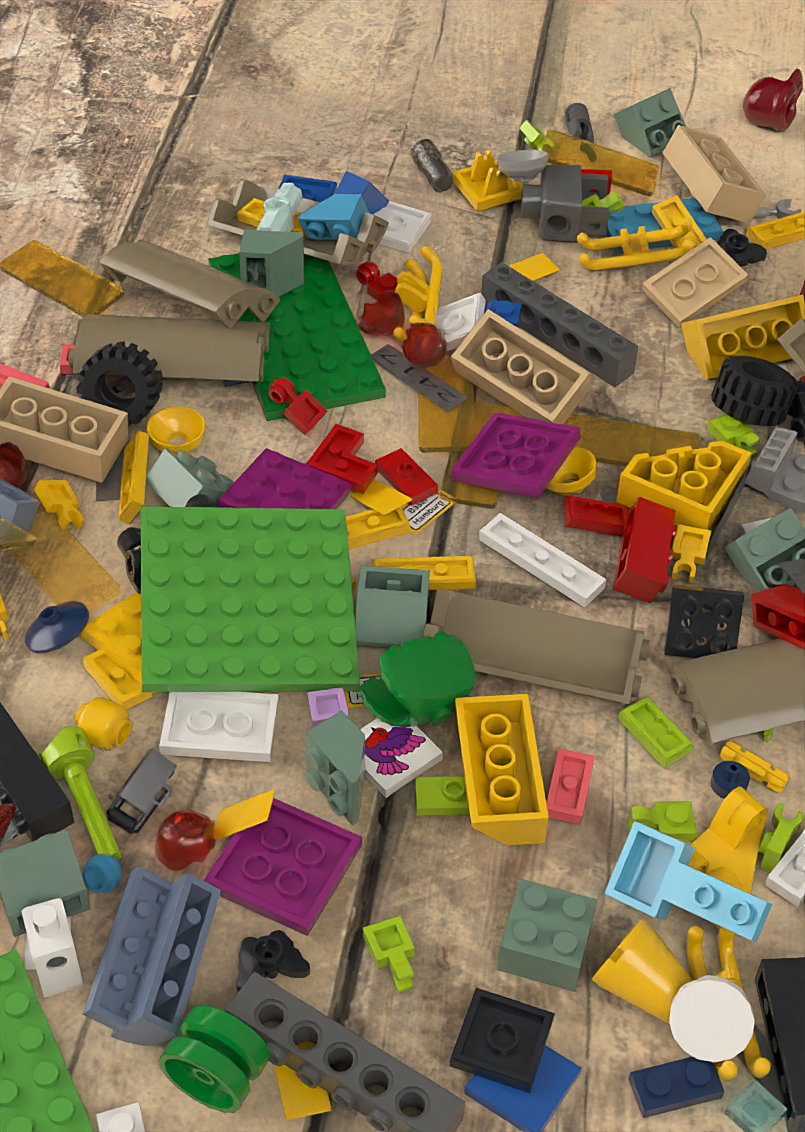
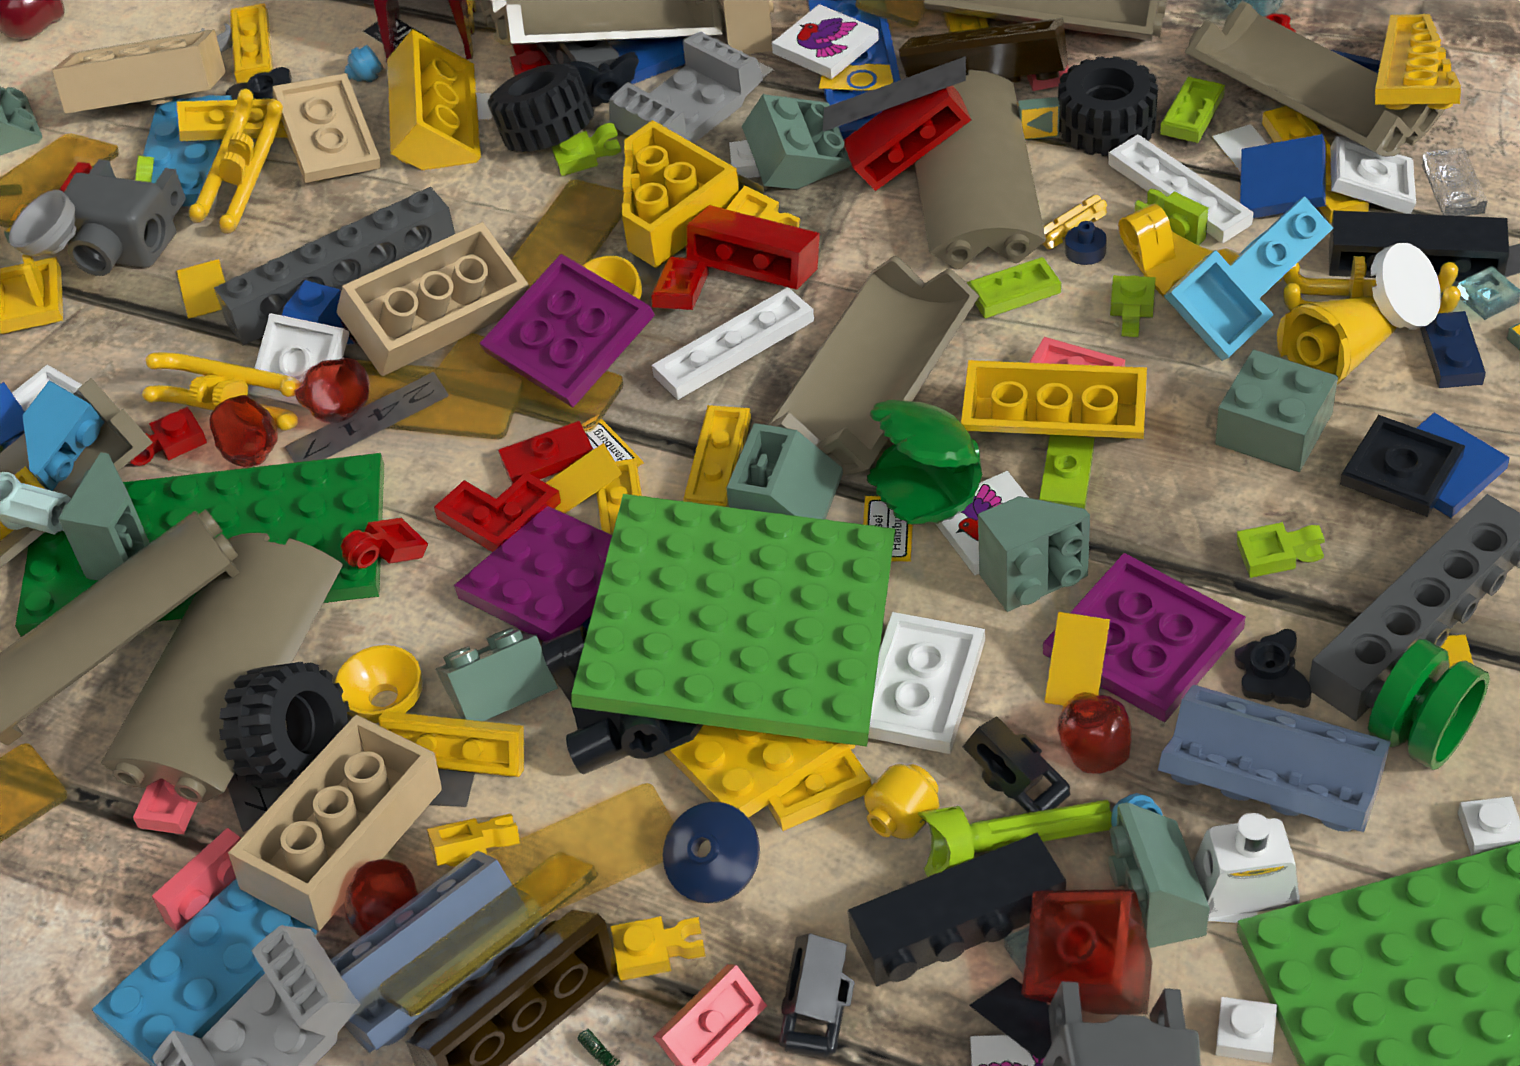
camera: 70 degrees left, 0 degrees up
(325, 704) = (918, 570): lavender plate -> none
(693, 604) = (883, 210): black plate -> none
(783, 288) = (363, 64): none -> dark azure plate

